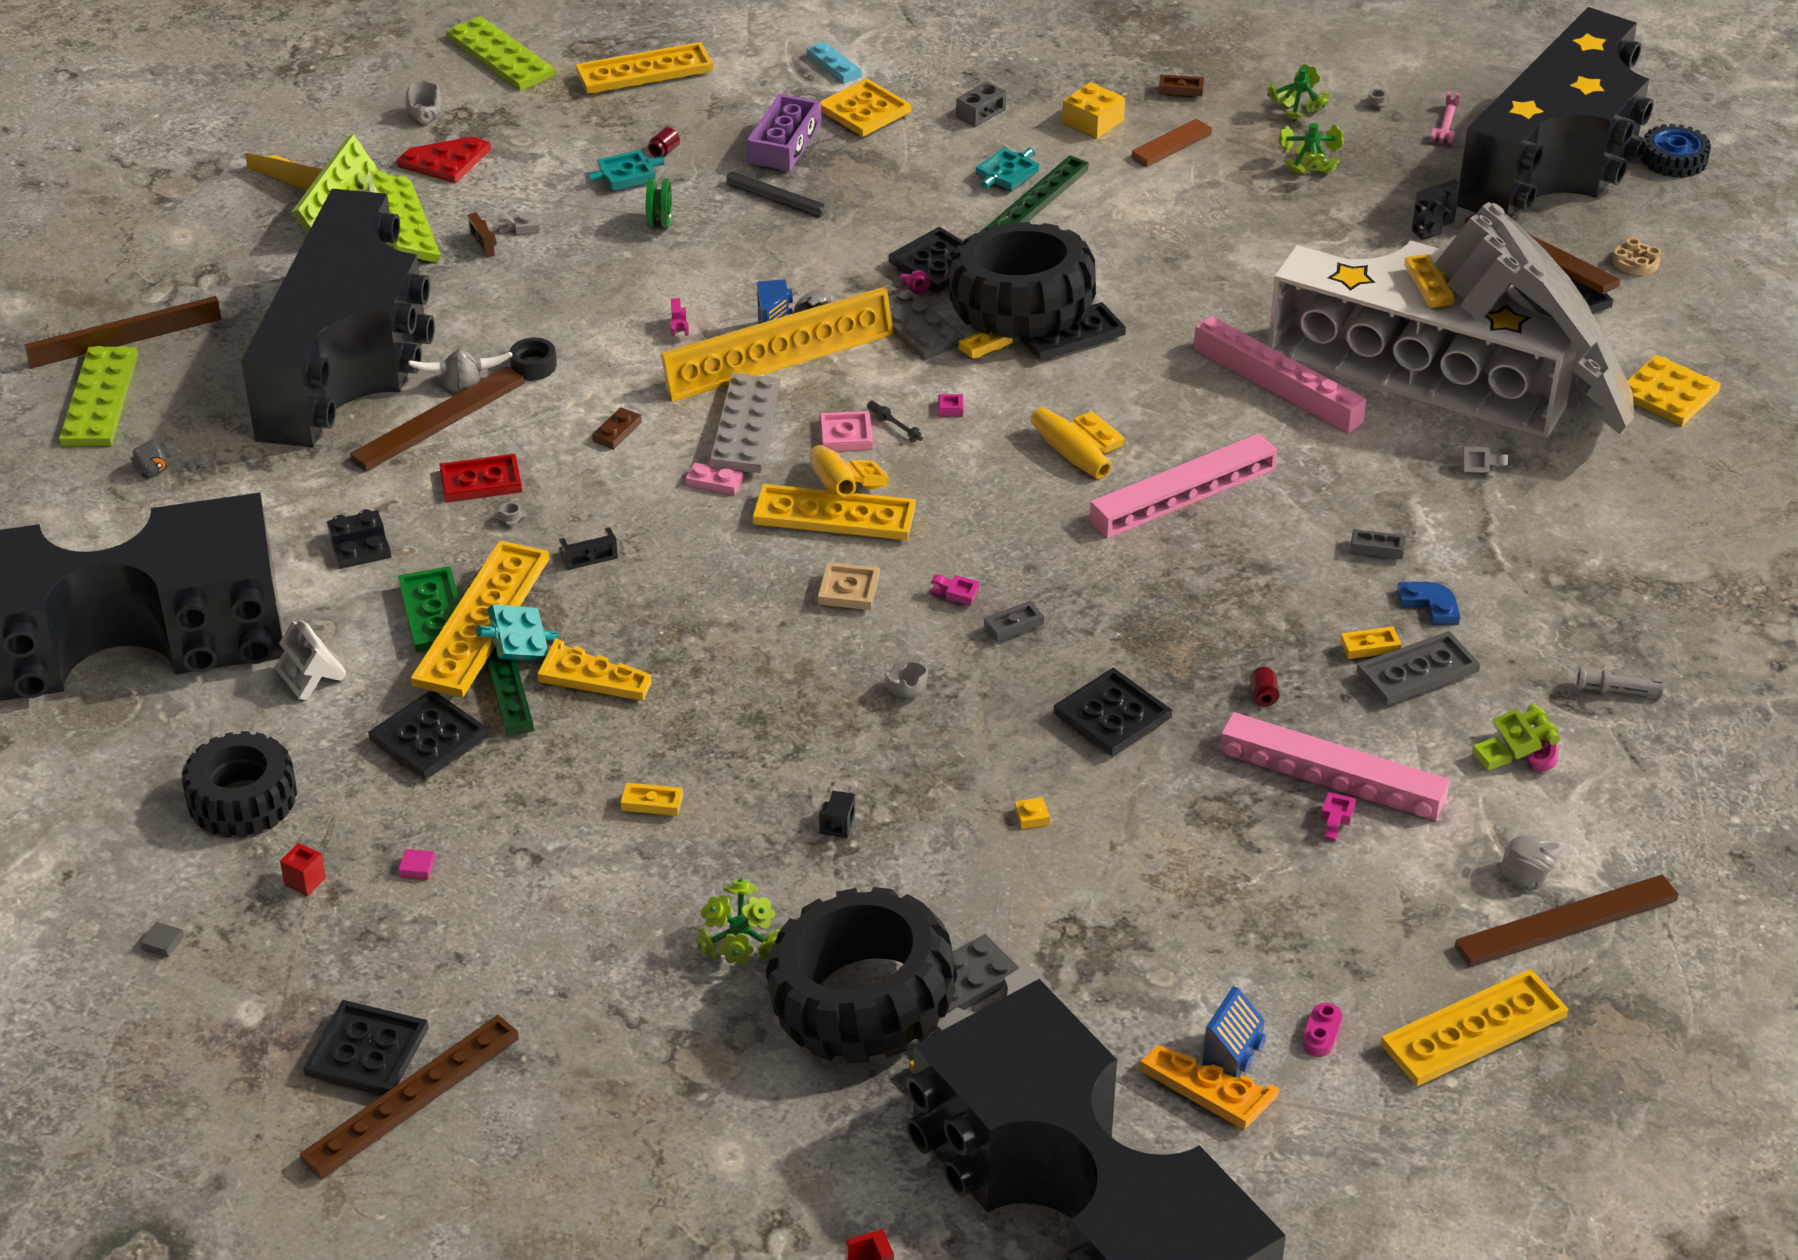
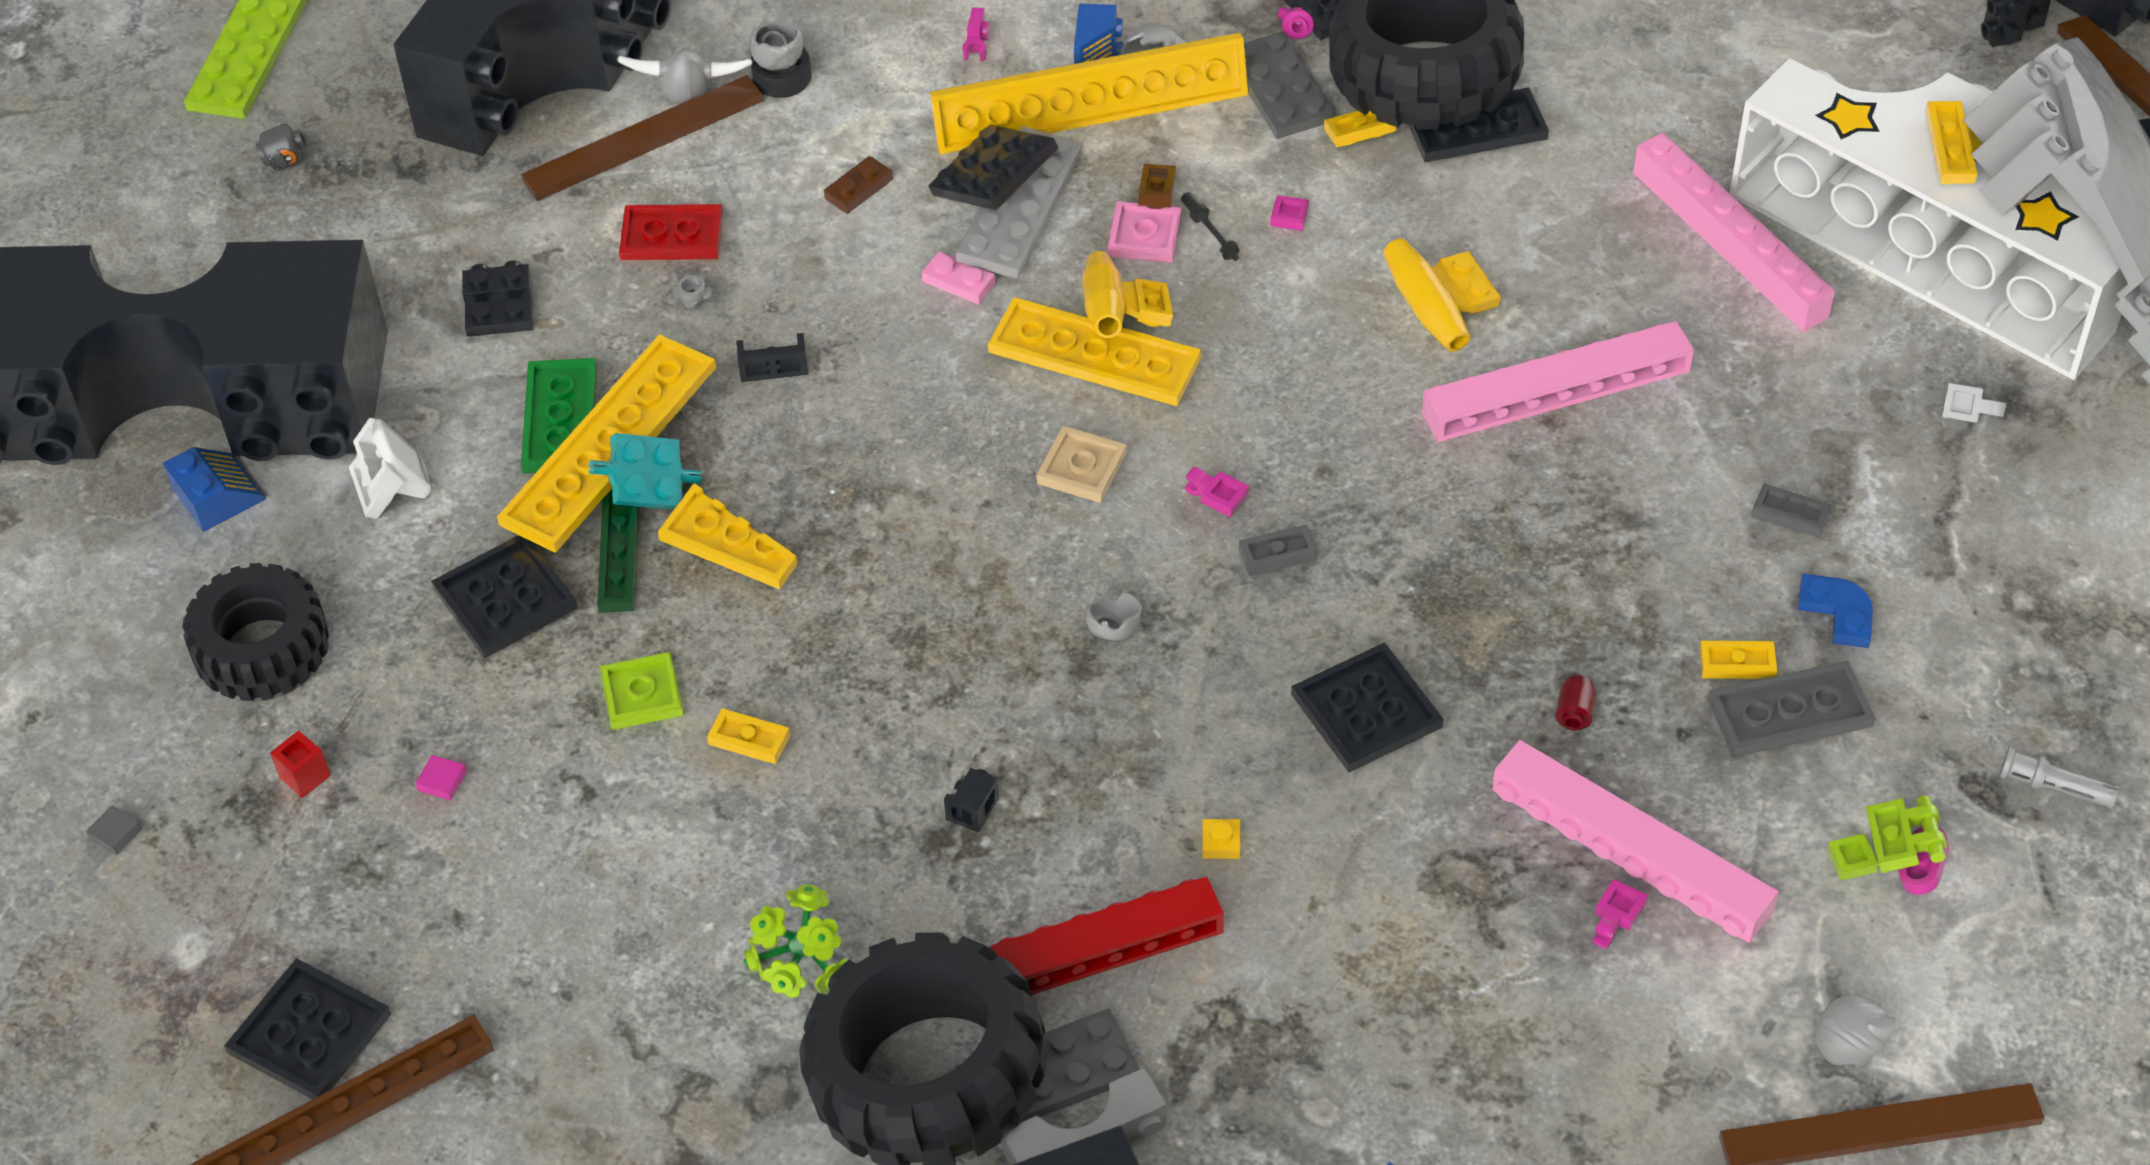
camera: 15 degrees right, 10 degrees up
(166, 695) = (211, 485): none -> blue slope
(530, 338) = (776, 44): none -> light grey hair
(556, 783) = (641, 690): none -> lime tile
(720, 400) = (993, 167): none -> black plate
(847, 398) = (1157, 186): none -> reddish brown plate
(986, 879) = (1115, 935): none -> red brick

